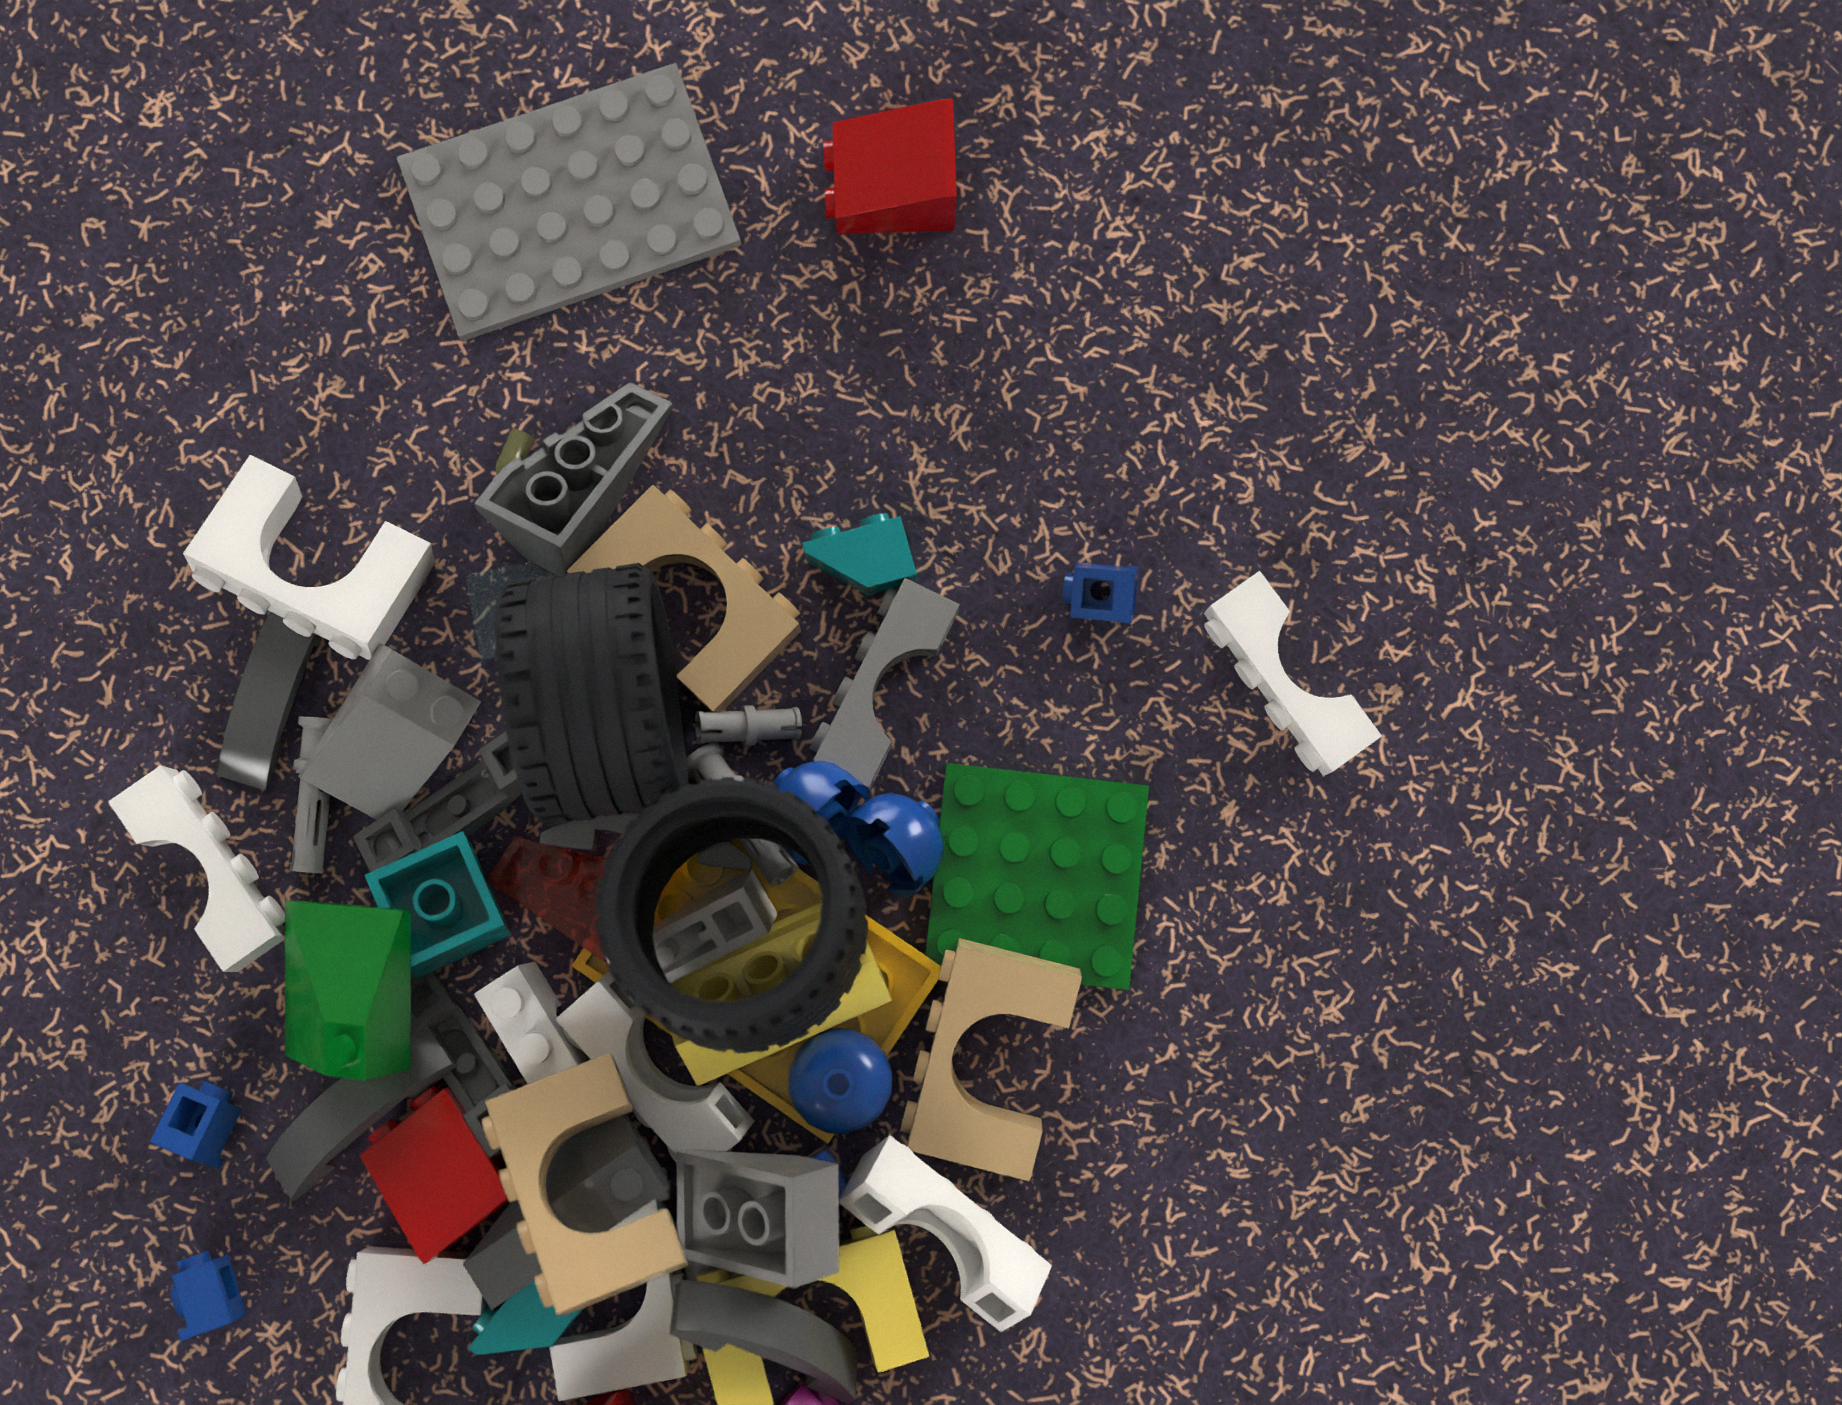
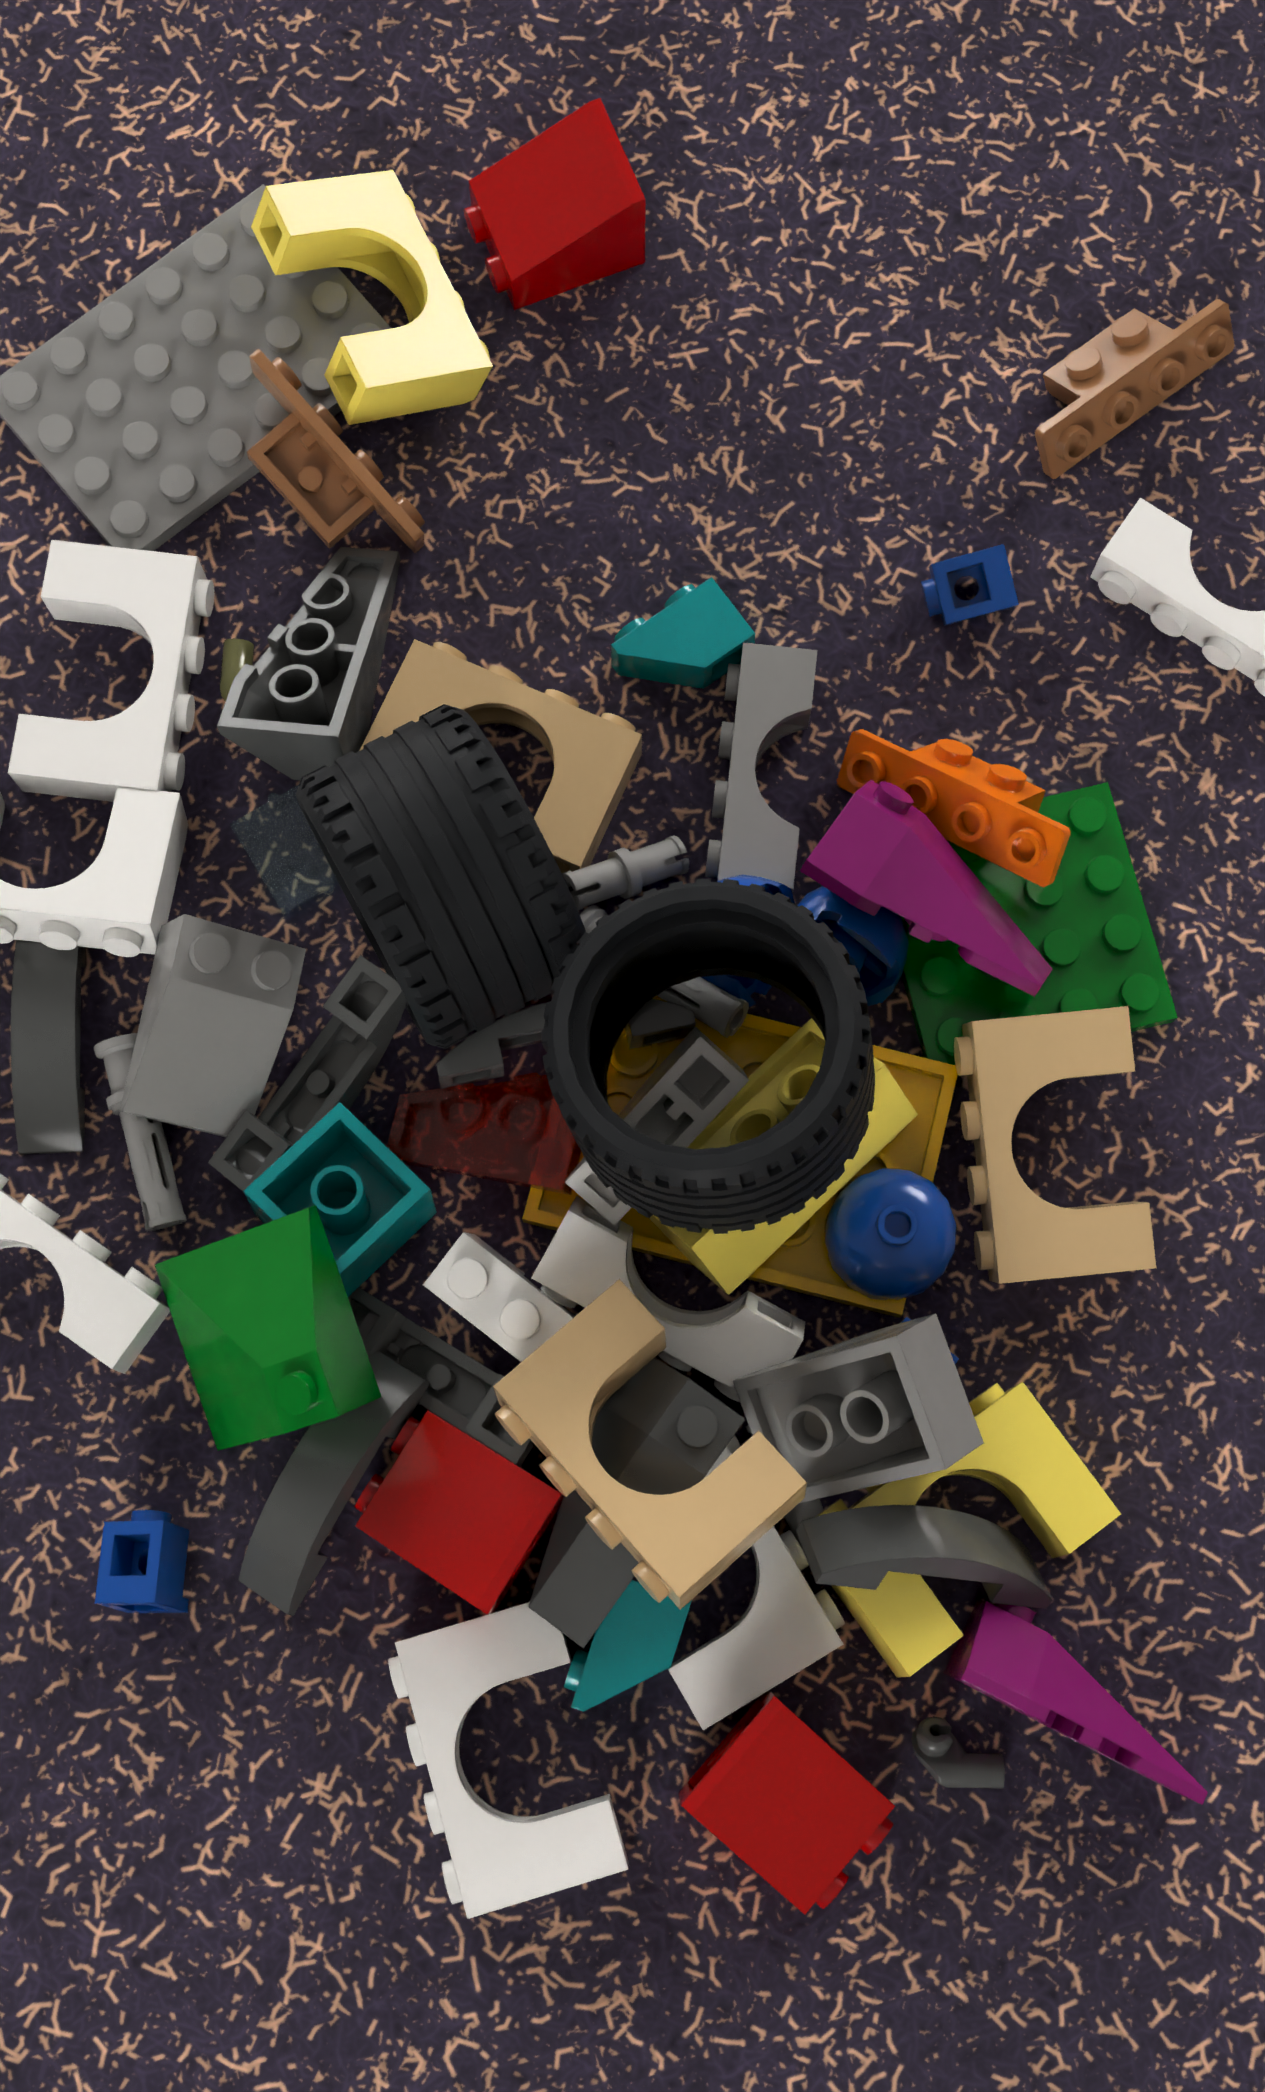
camera: 15 degrees left, 5 degrees down
(206, 1294) = (225, 1765): blue brick -> none
(417, 492) = (138, 748): none -> white arch
(629, 320) = (318, 471): none -> medium nougat bracket
(747, 134) = (374, 229): none -> light yellow arch
(955, 808) = (897, 859): none -> magenta wedge
(995, 1268) = (1155, 1384): white arch -> none
(1025, 761) = (966, 799): none -> orange bracket
(1291, 461) = (1124, 377): none -> medium nougat bracket

